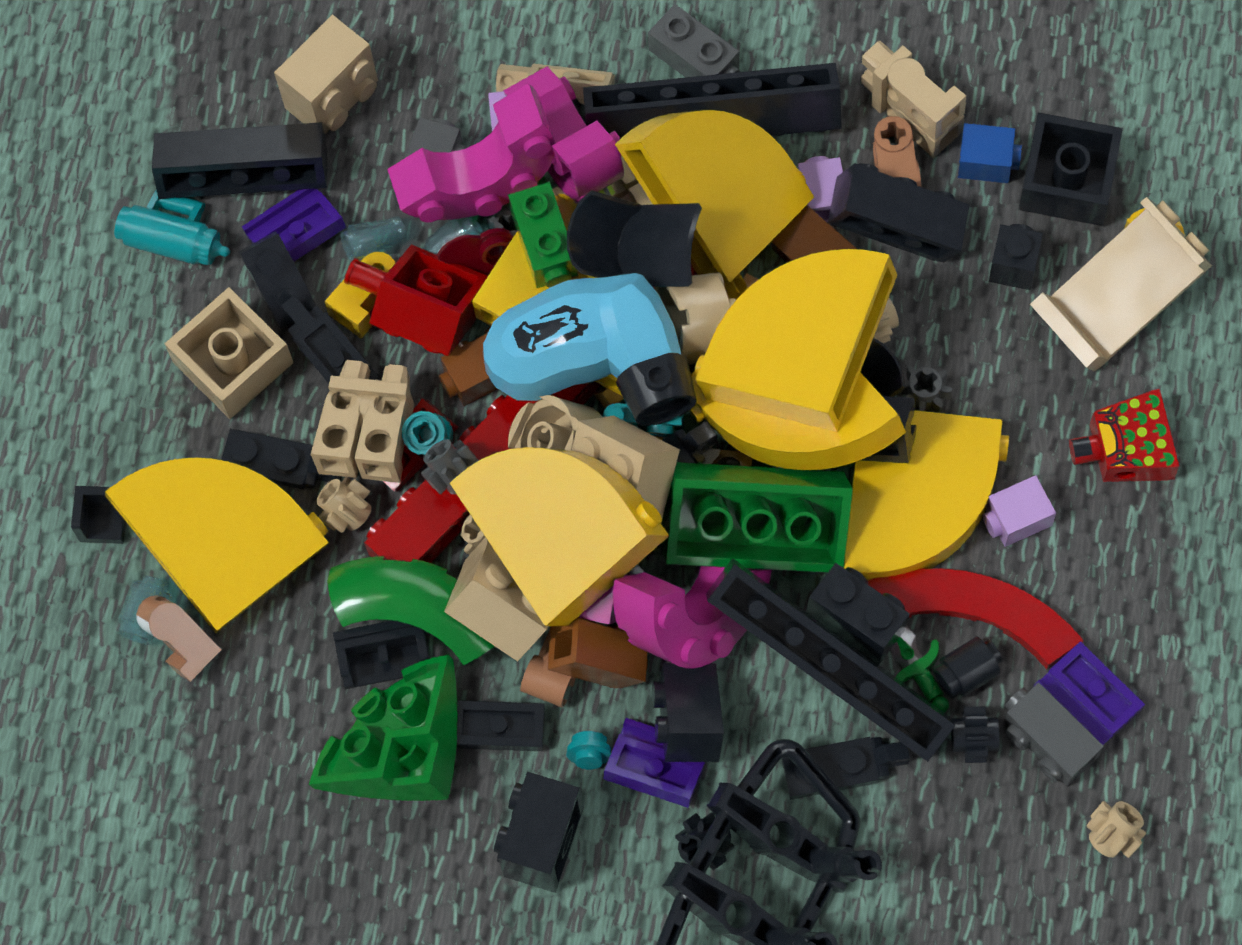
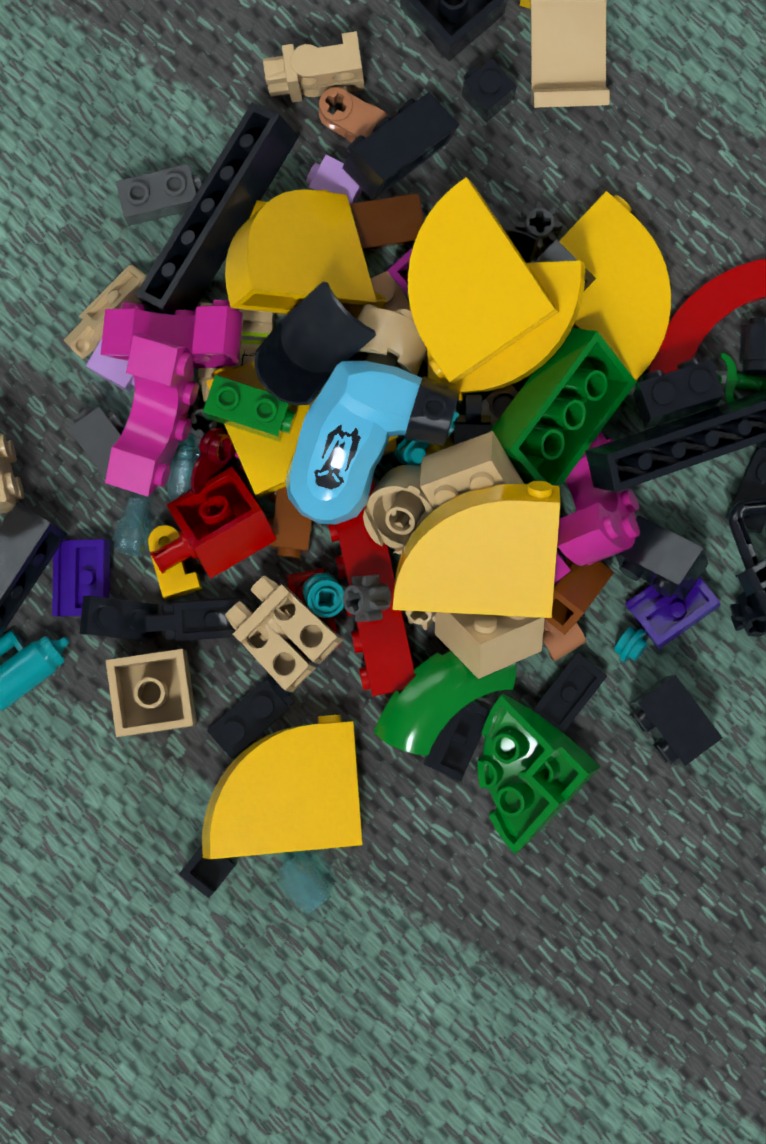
camera: 60 degrees left, 15 degrees up
(173, 626) = (354, 872): nougat leg -> none
(344, 504) = (328, 690): tan gear -> none
(988, 153) = (394, 49): blue brick -> none
(1018, 511) = (675, 228): lavender brick -> none
(1130, 441) = (679, 116): red torso -> none

